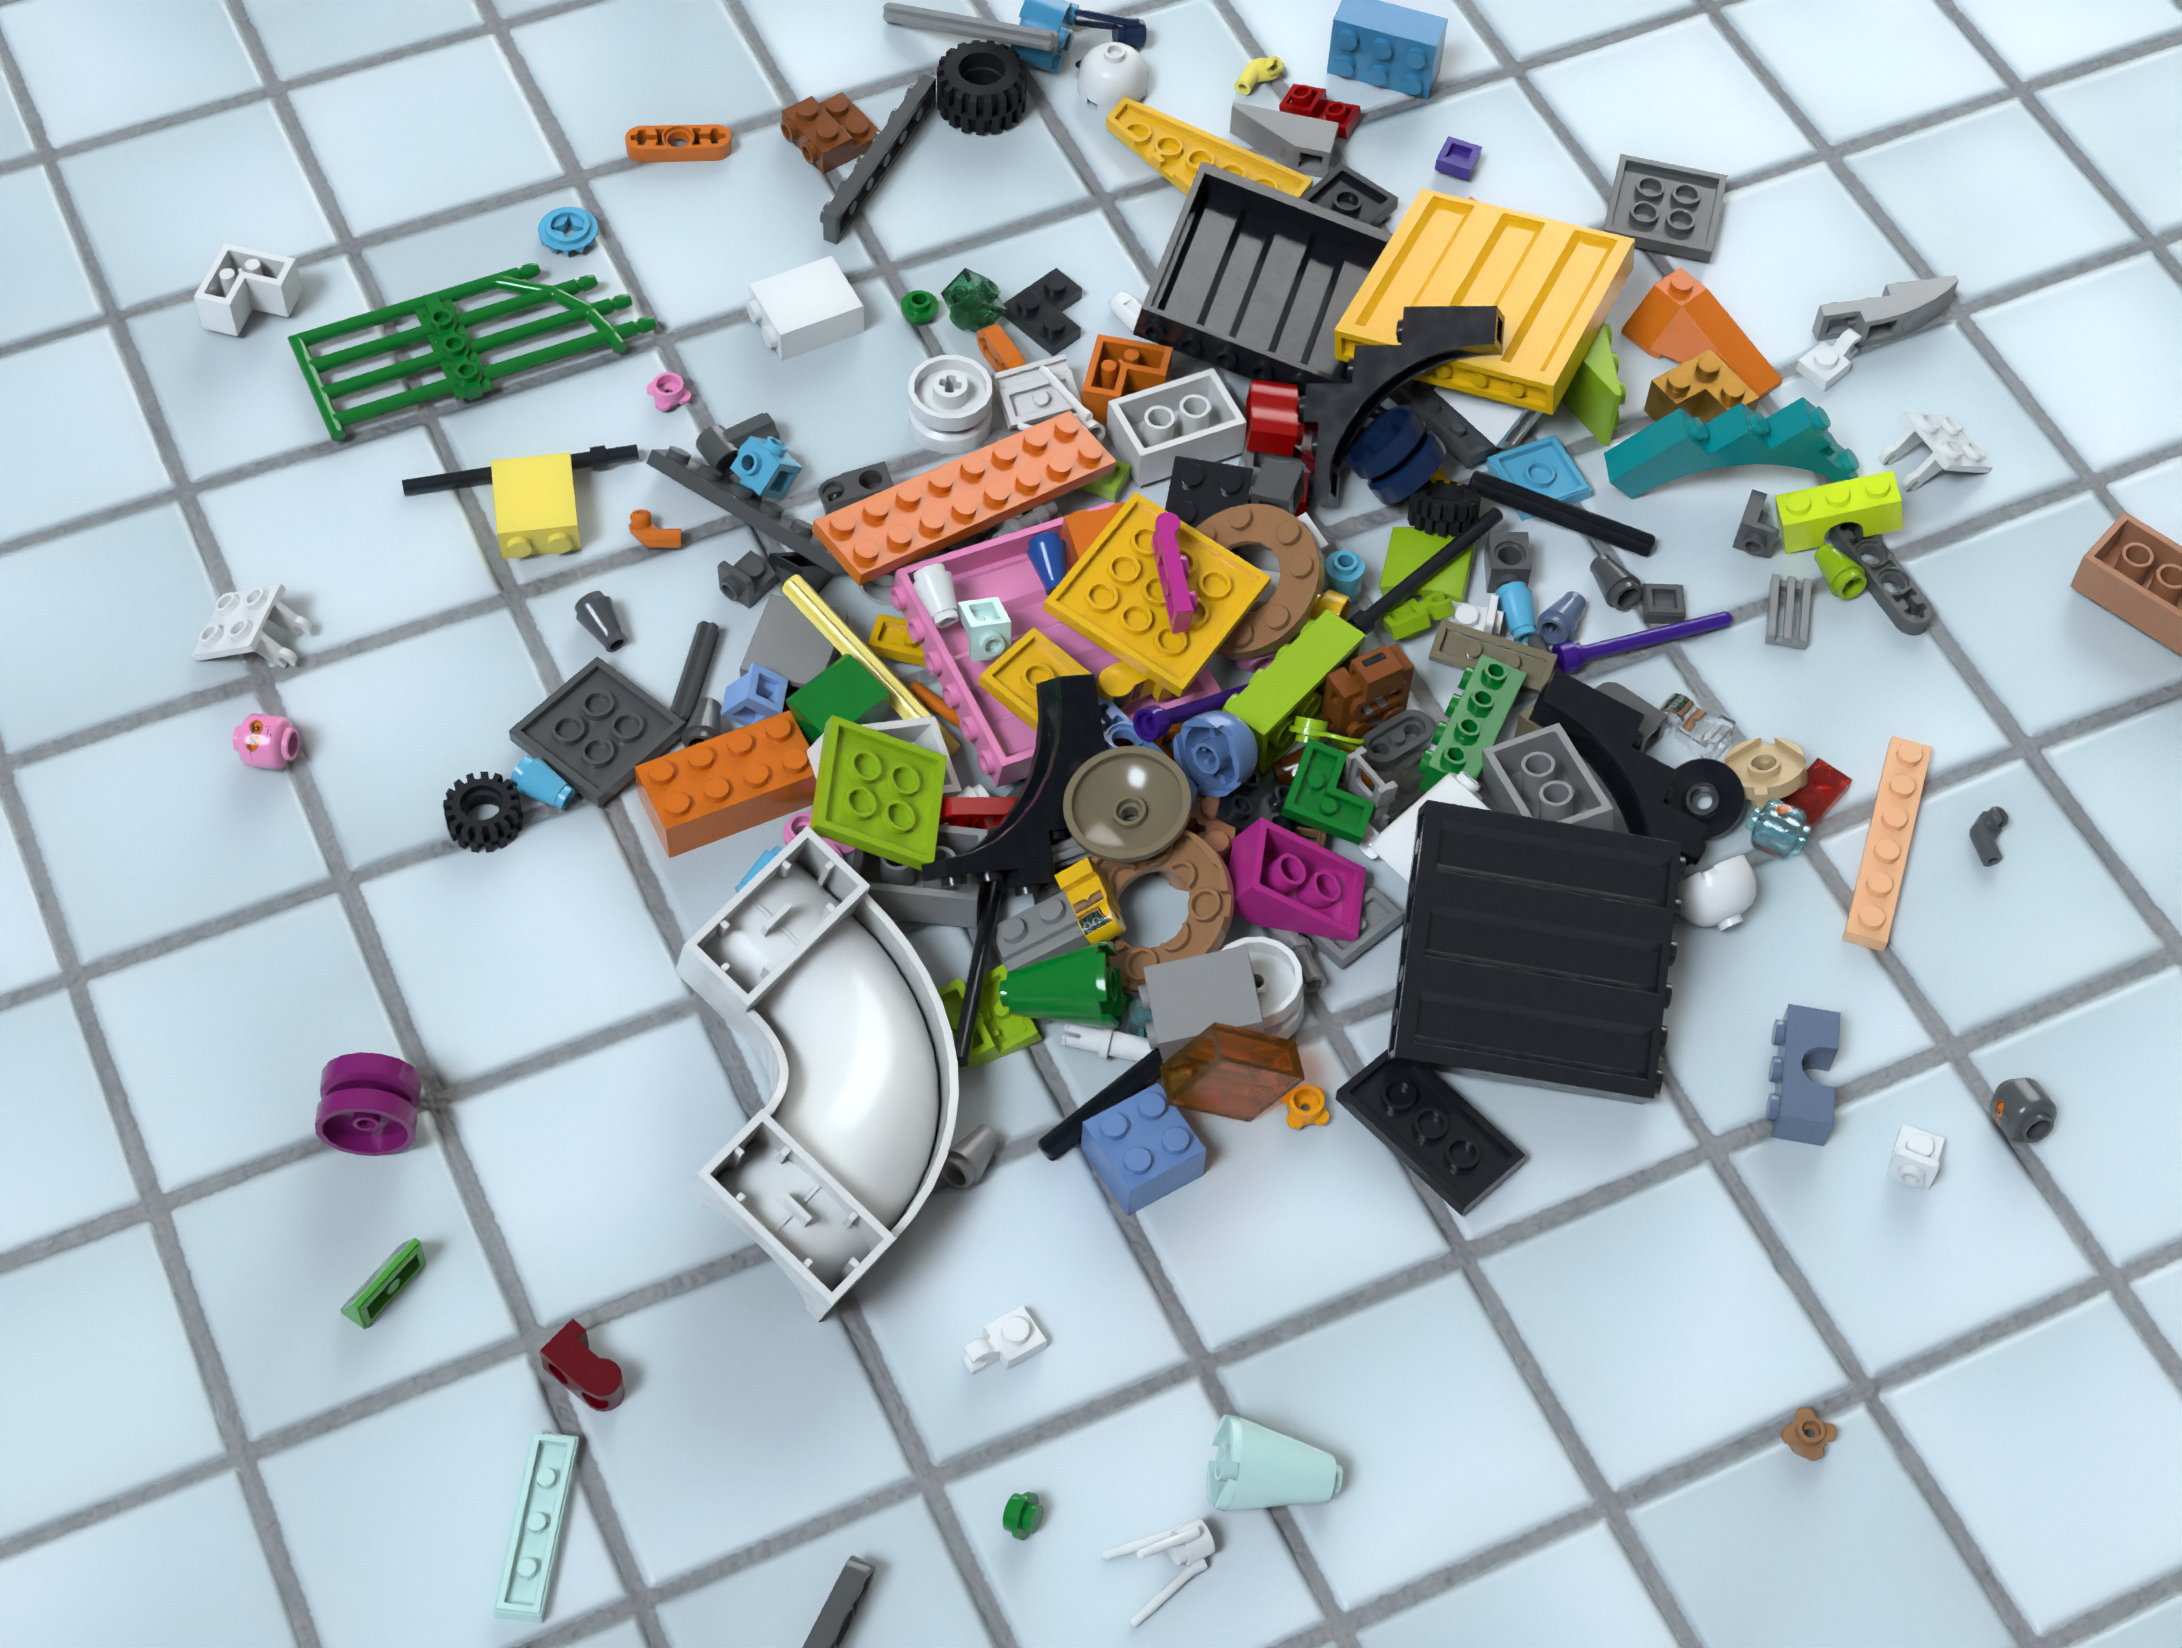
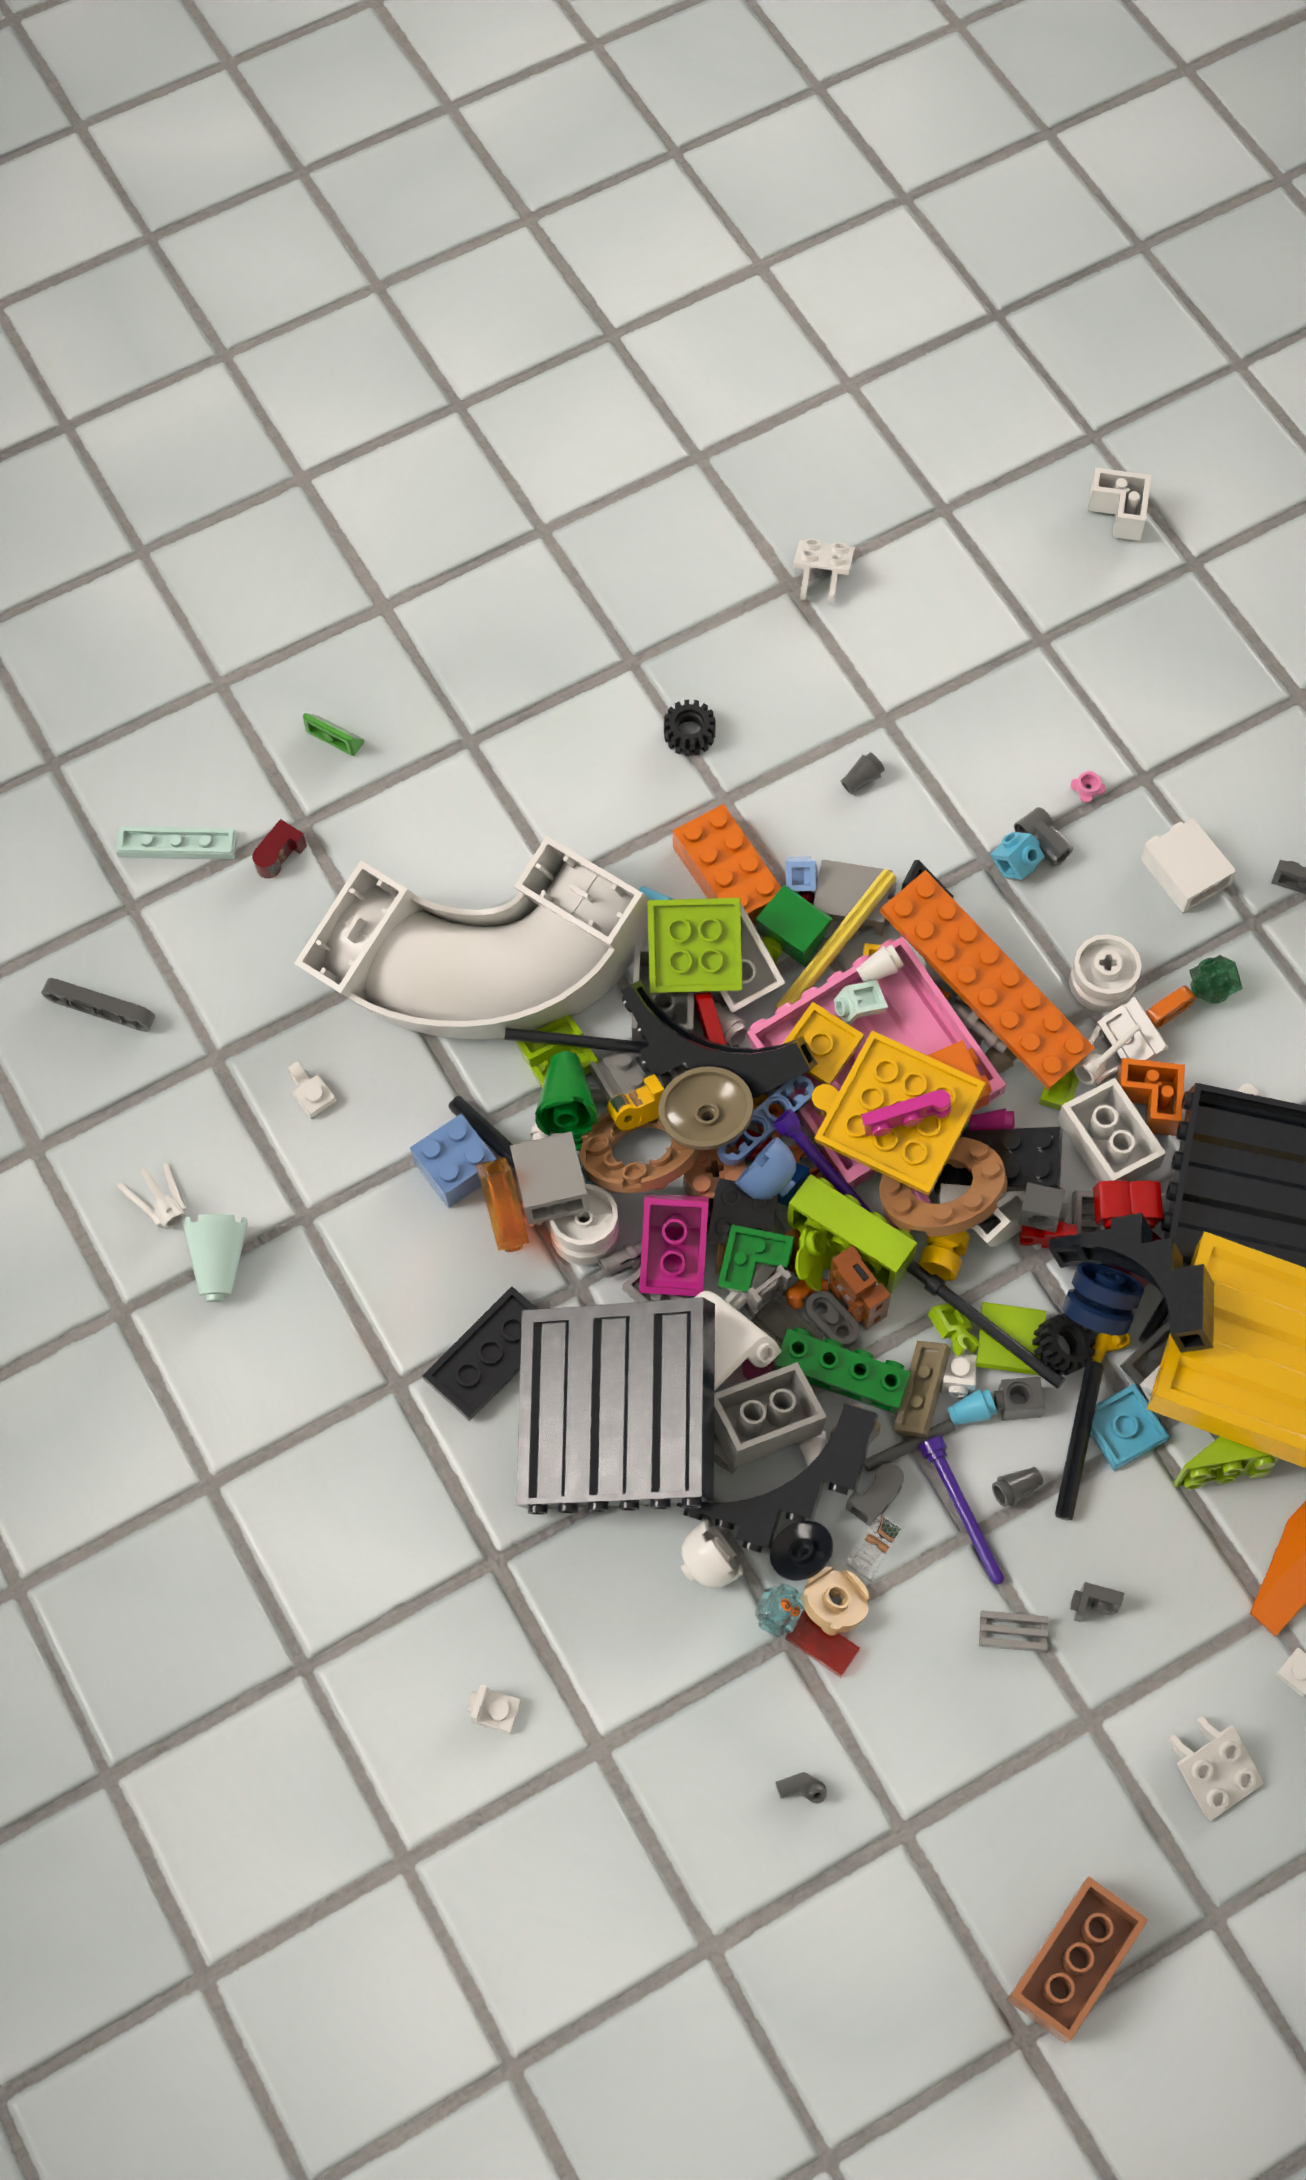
camera: 90 degrees right, 10 degrees up
(266, 741) = (727, 592): bright pink head -> none
(368, 1104) = (444, 695): magenta wheel -> none
(452, 344) = (1104, 639): green piece -> none
(535, 505) = (958, 715): light yellow brick -> none
(540, 782) = (717, 757): medium azure cone -> none
(554, 226) = (1244, 689): medium azure gear -> none
(597, 457) = (1014, 747): black bar -> none
(597, 731) = (766, 785): dark grey plate -> none
(650, 535) = (950, 793): orange arm -> none
(695, 670) = (828, 838): dark grey axle -> none
(703, 723) = (777, 849): dark grey cone -> none
(739, 501) = (988, 835): dark grey plate -> none
(747, 579) = (913, 851): dark grey bracket -> none
(854, 486) = (1009, 924): dark grey leg -> none
(919, 307) = (1205, 950): green plate -> none
(970, 1157) = (444, 1055): light grey cone -> none
(1022, 1515) = (185, 1110): green plate -> none
(1040, 308) = (1230, 1031): black plate -> none
(1048, 558) = (931, 1039): blue cone -> none
(1308, 1096) = (507, 1261): light orange plate -> none
(1344, 573) = (979, 1269): medium azure brick -> none
(1561, 618) = (973, 1444): sand blue cone -> none
(1663, 603) = (1005, 1528): dark grey tile -> none
(1686, 445) = (1164, 1581): teal arch -> none
(1700, 387) = (1238, 1553): pearl gold brick -> none
(1801, 1107) = (528, 1616): sand blue arch -> none
(1805, 1446) = (263, 1628): medium nougat plate -> none
(1811, 512) = (1118, 1678): neon yellow arch -> none
(1840, 572) = (1058, 1674): lime cone -> none
(1886, 570) = (1069, 1713): dark grey beam -> none
(1887, 844) = (787, 1704): light nougat plate -> none
(2023, 1110) = (537, 1793): dark grey head -> none

